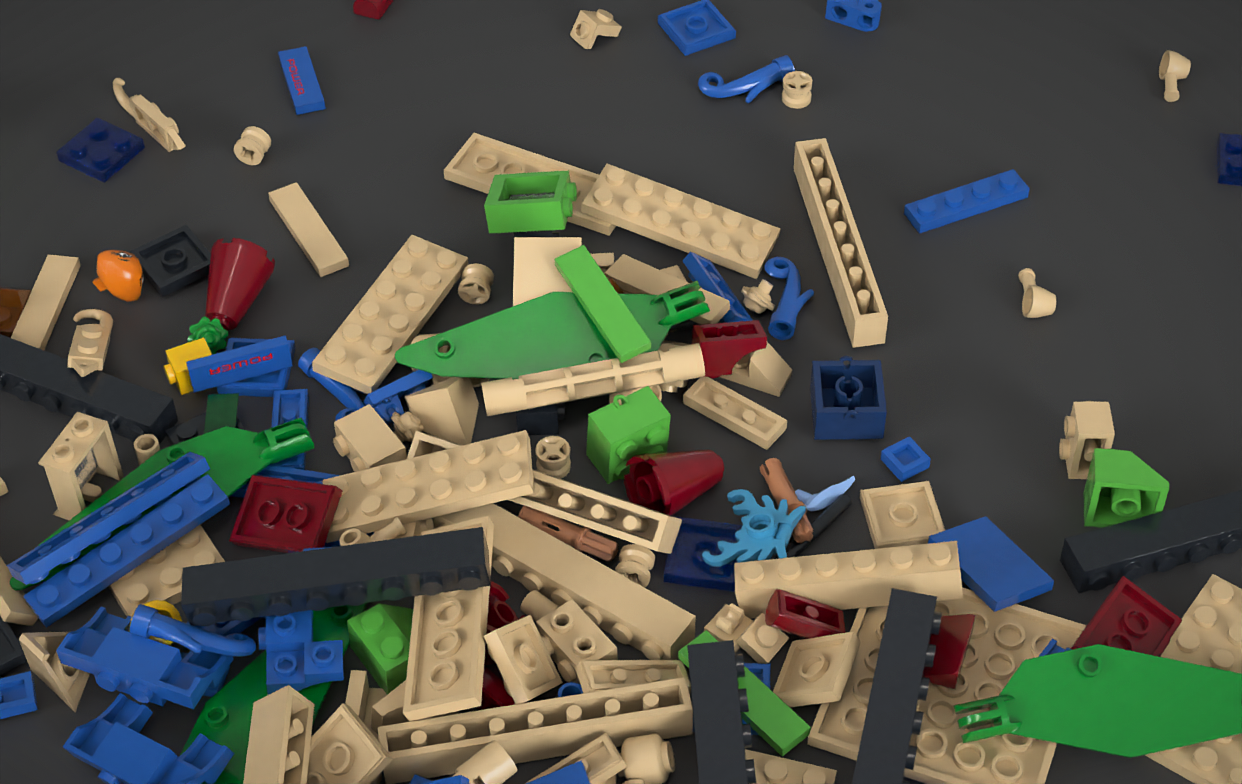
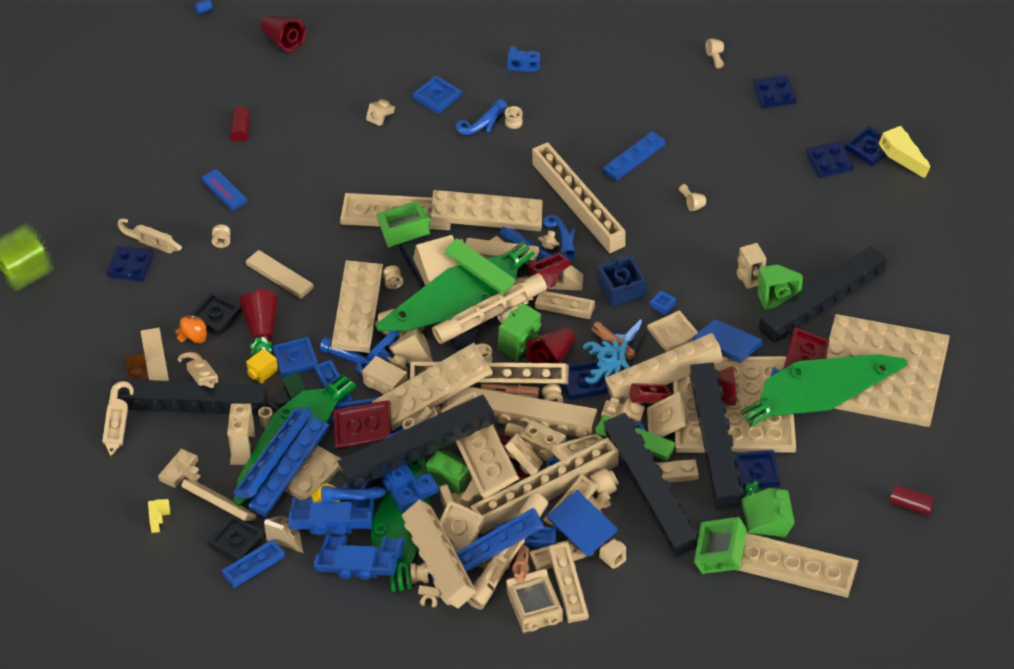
camera: 20 degrees left, 0 degrees up
(239, 363) = (290, 356): blue tile -> none

